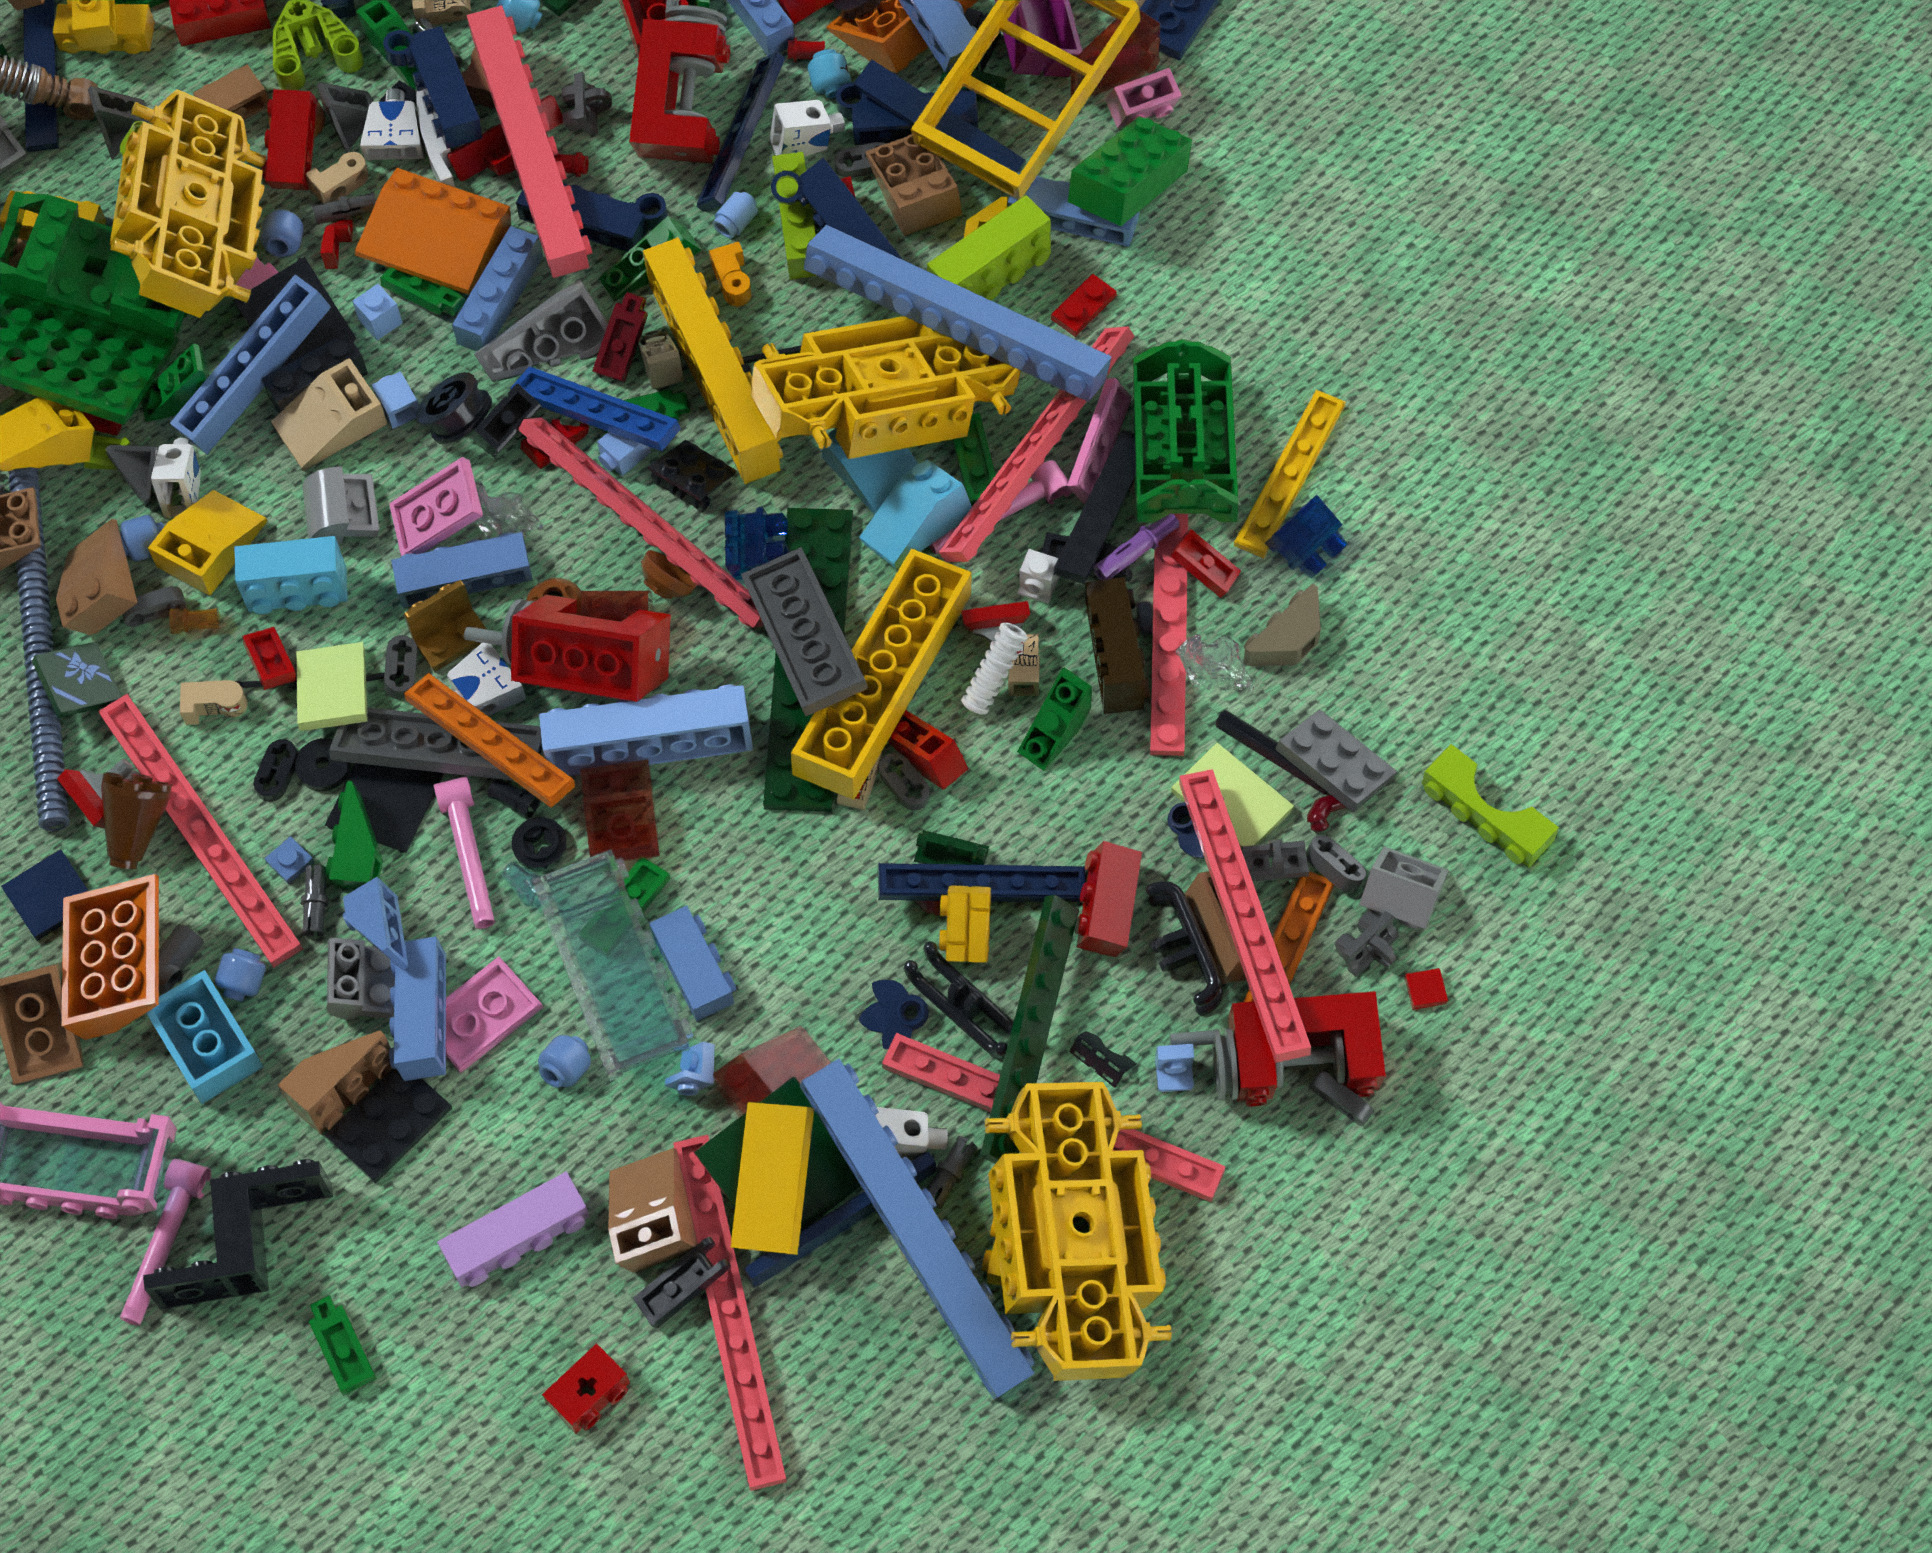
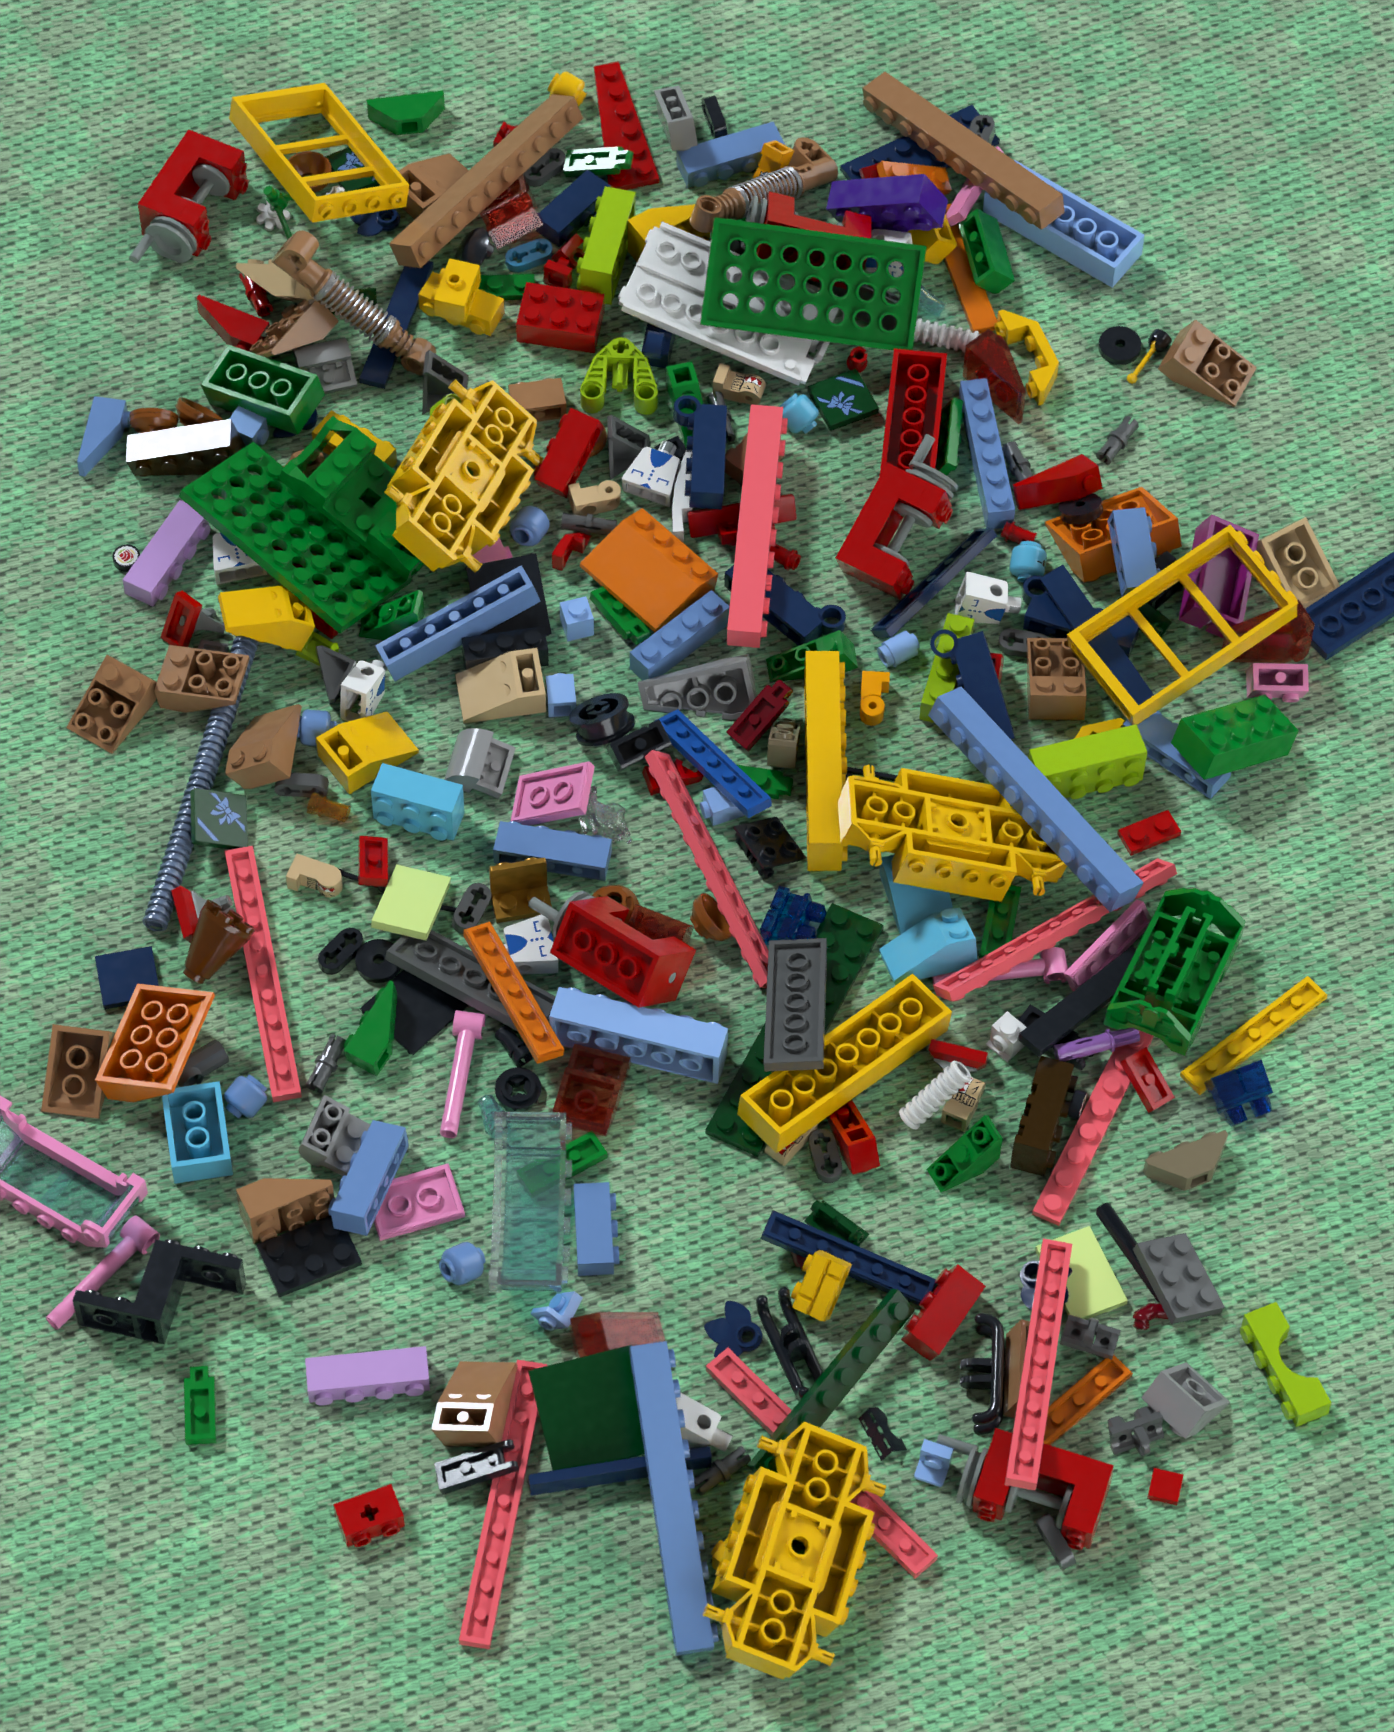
camera: 20 degrees right, 5 degrees down
(289, 860) = (320, 1024): medium blue plate -> none
(377, 917) = (367, 1092): medium blue slope -> none
(584, 98) = (820, 511): dark grey hips -> none
(772, 1178) = (578, 1414): yellow tile -> none
(1214, 664) = (1116, 1163): clear hair -> none
(1335, 863) = (1138, 1359): dark grey beam -> none

